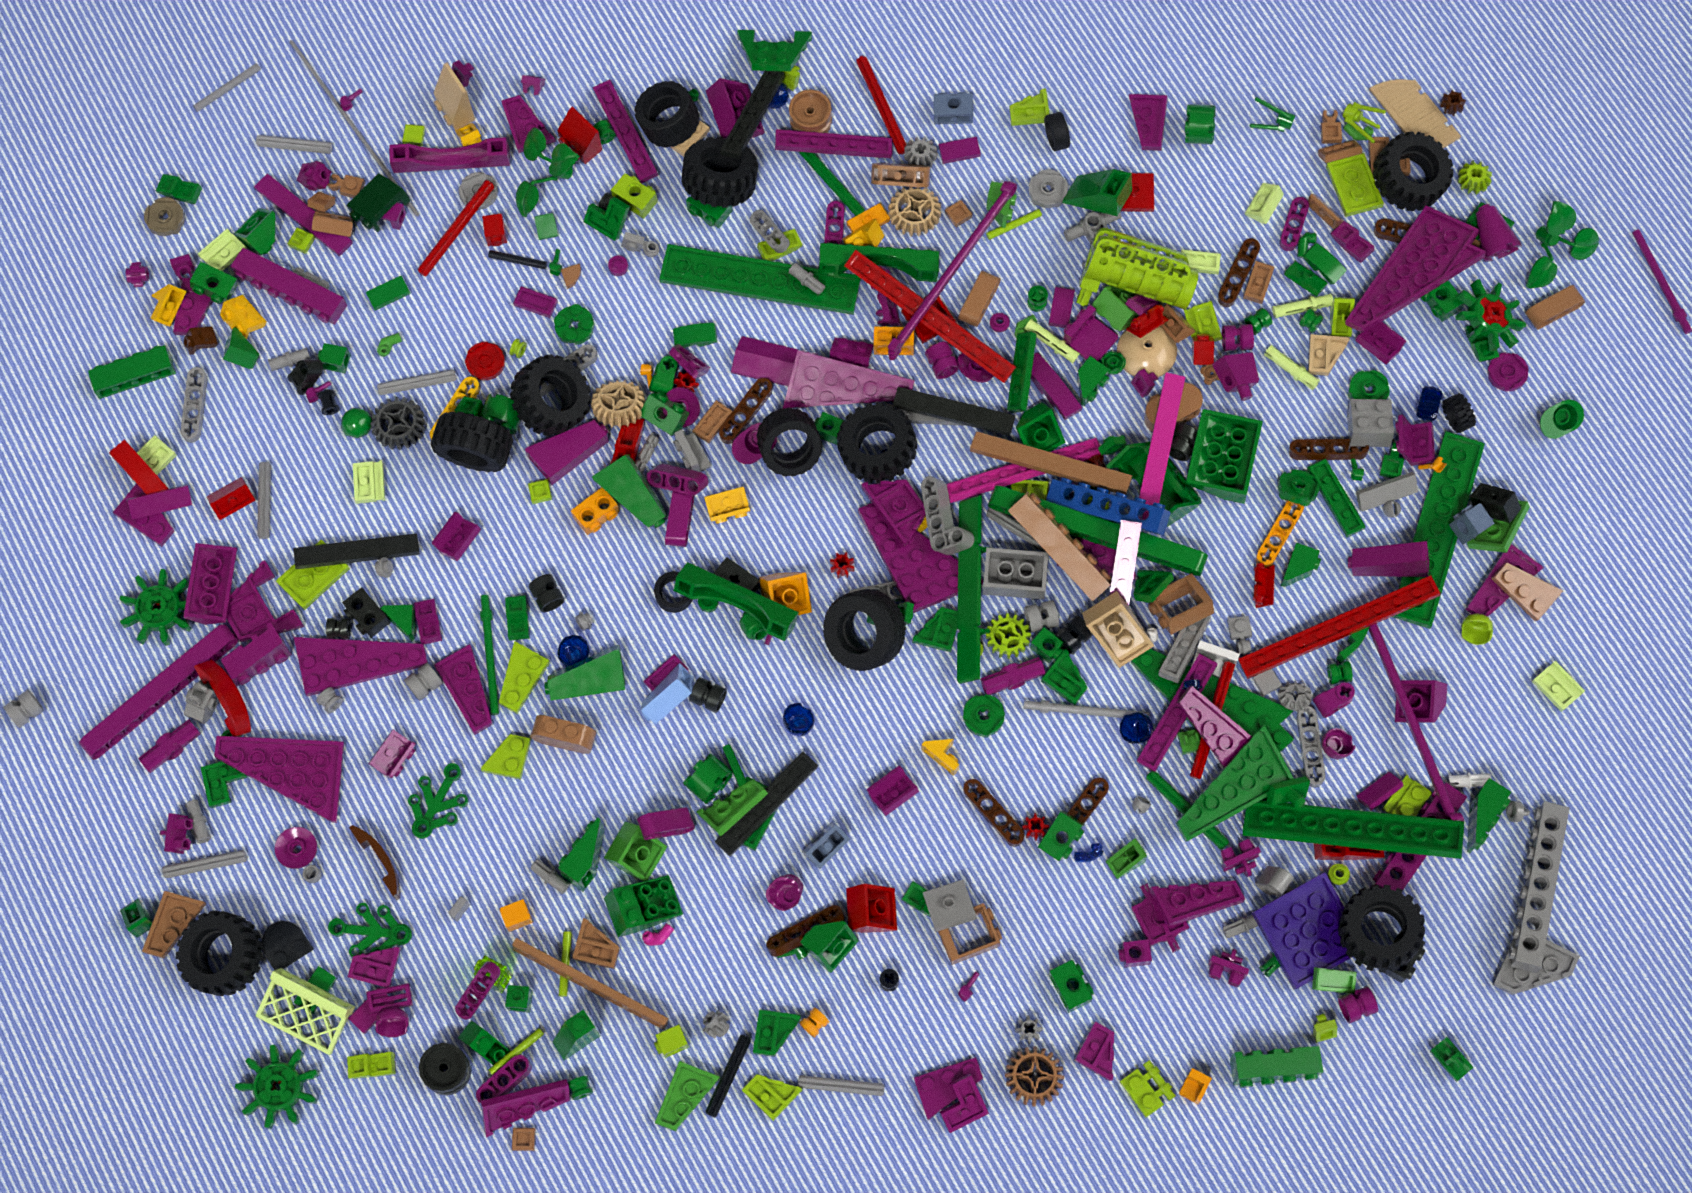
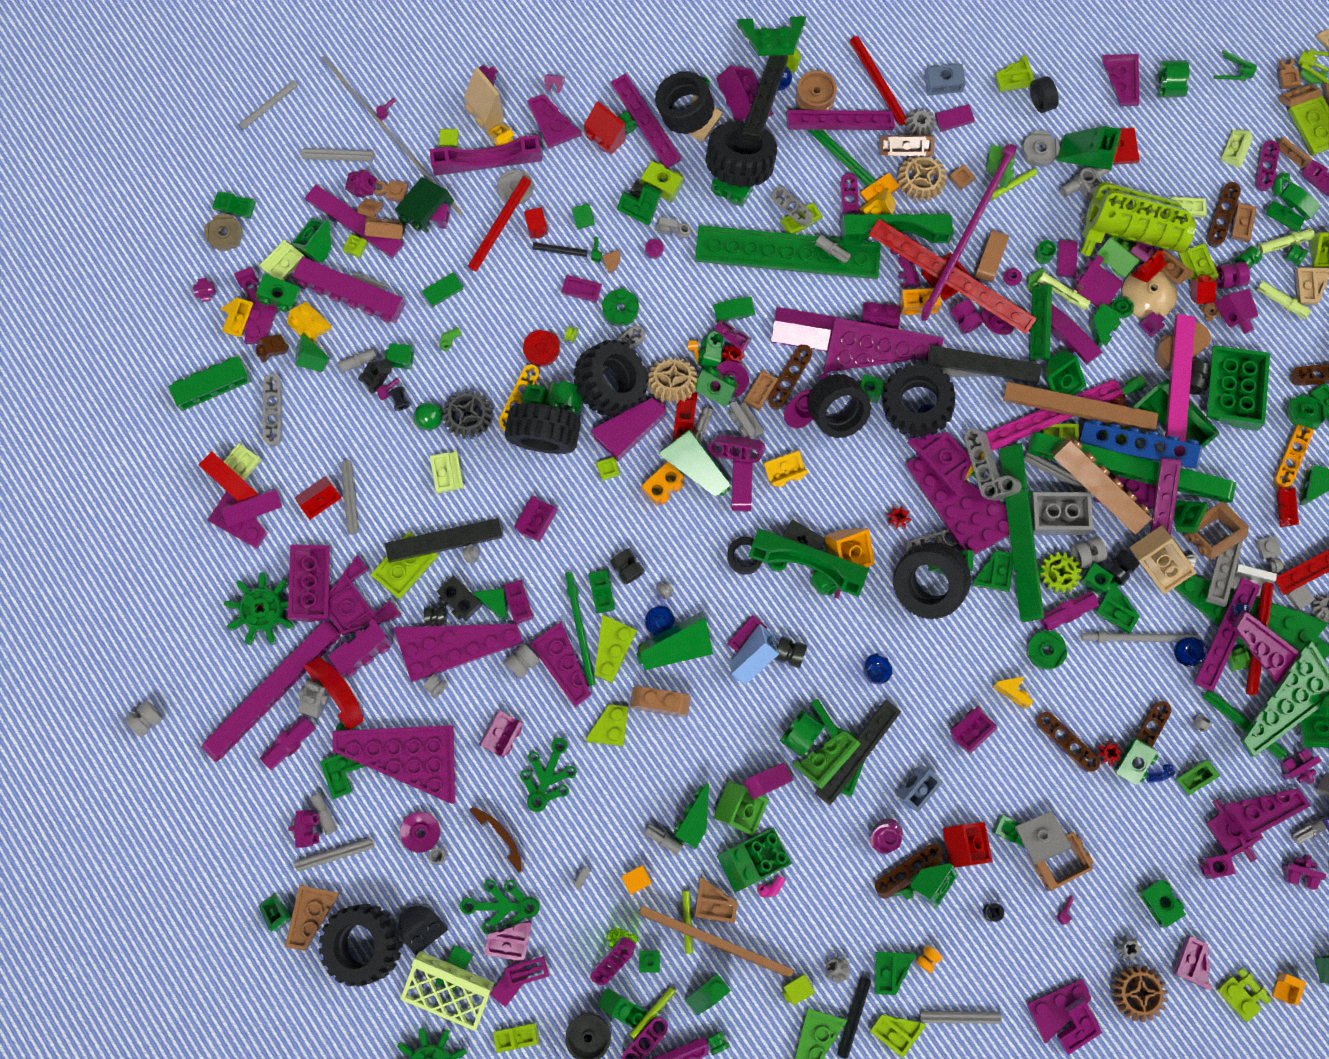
camera: 10 degrees left, 5 degrees up
(392, 1022) = (532, 995): magenta hair -> none
(416, 382) = (479, 373): light grey axle -> none
(561, 167) = (595, 155): green plant -> none

